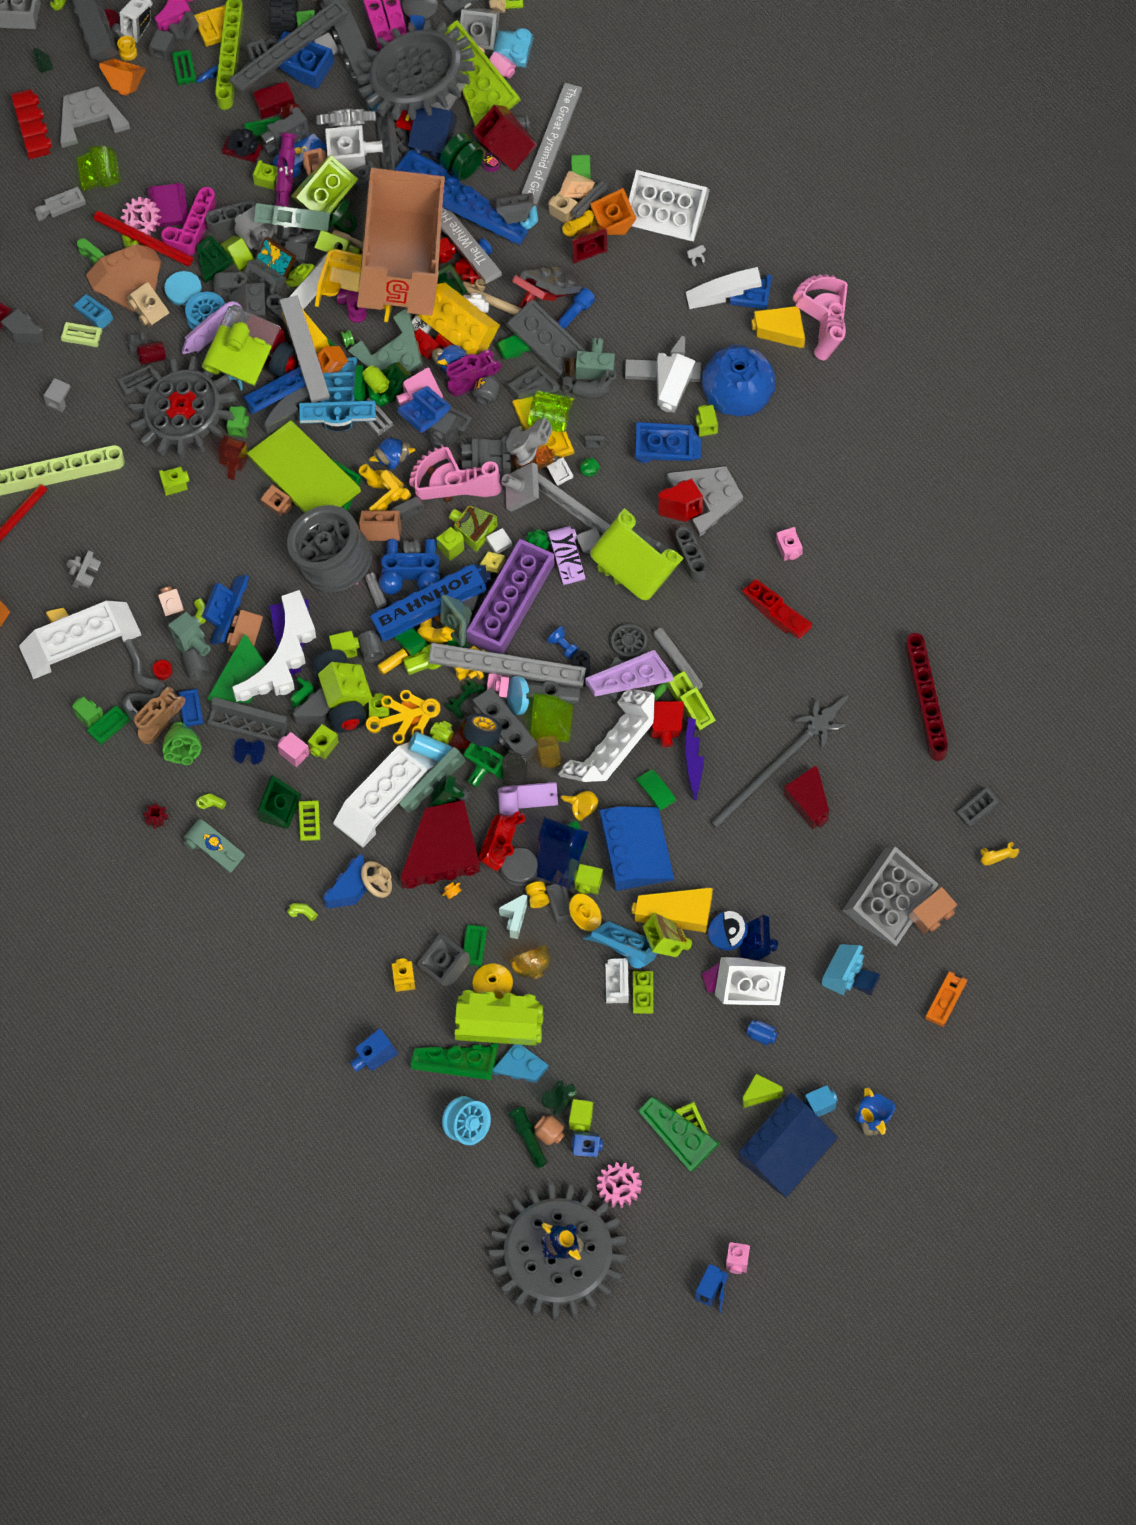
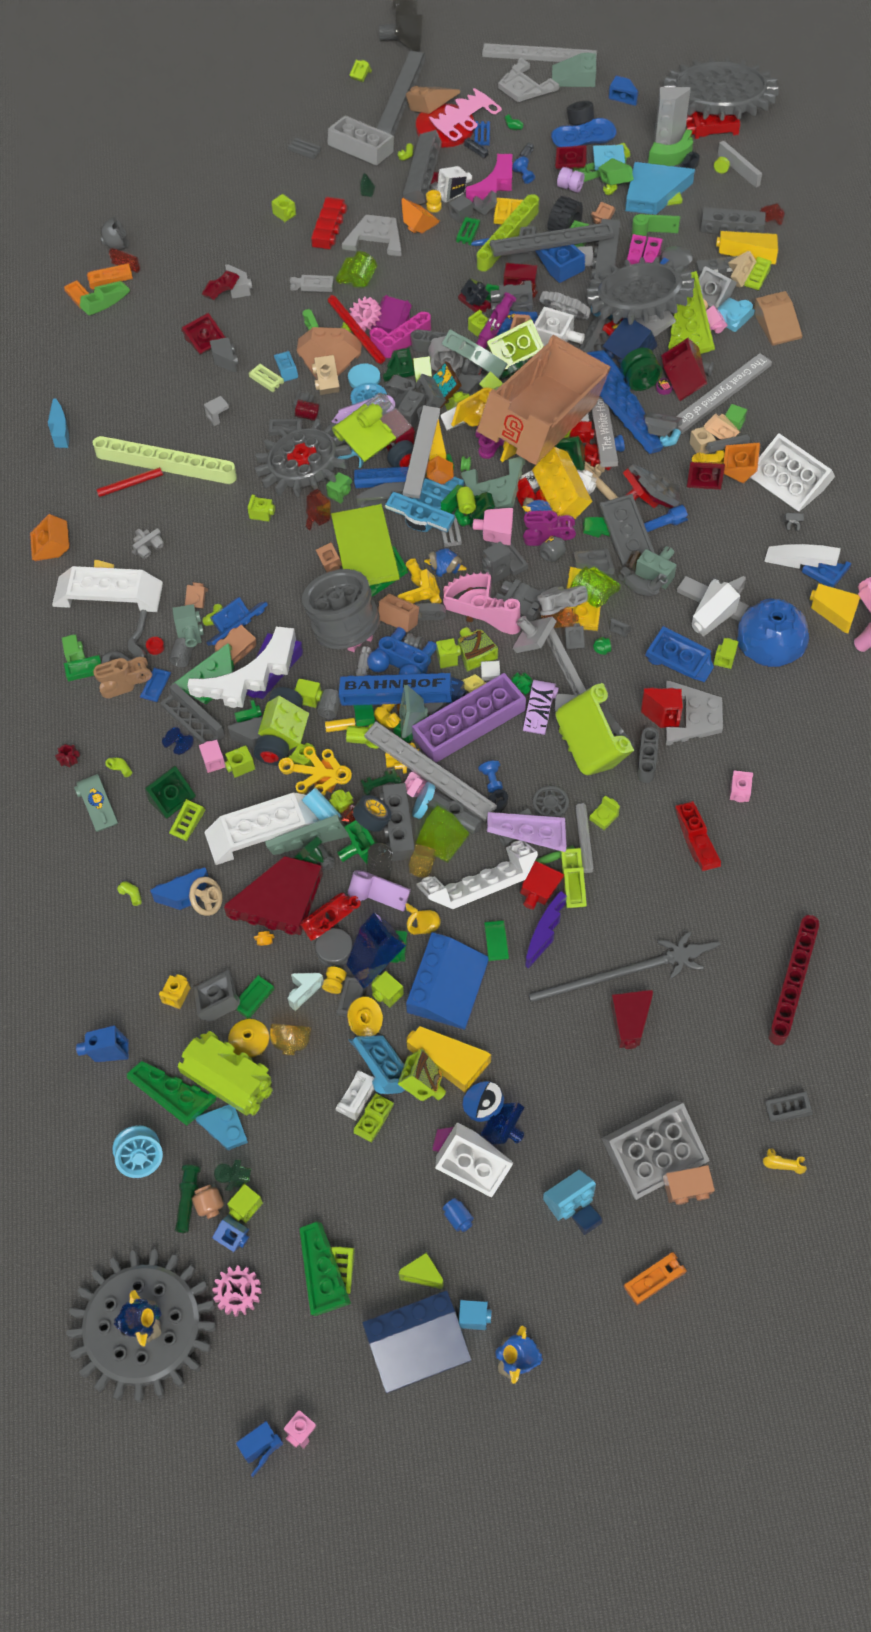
camera: 30 degrees right, 5 degrees down
(181, 744) = (124, 708): bright green piece -> none
(424, 409) = (487, 536): blue slope -> none
(561, 35) = (777, 318): none -> medium nougat slope
(683, 627) = (605, 813): none -> lime bracket

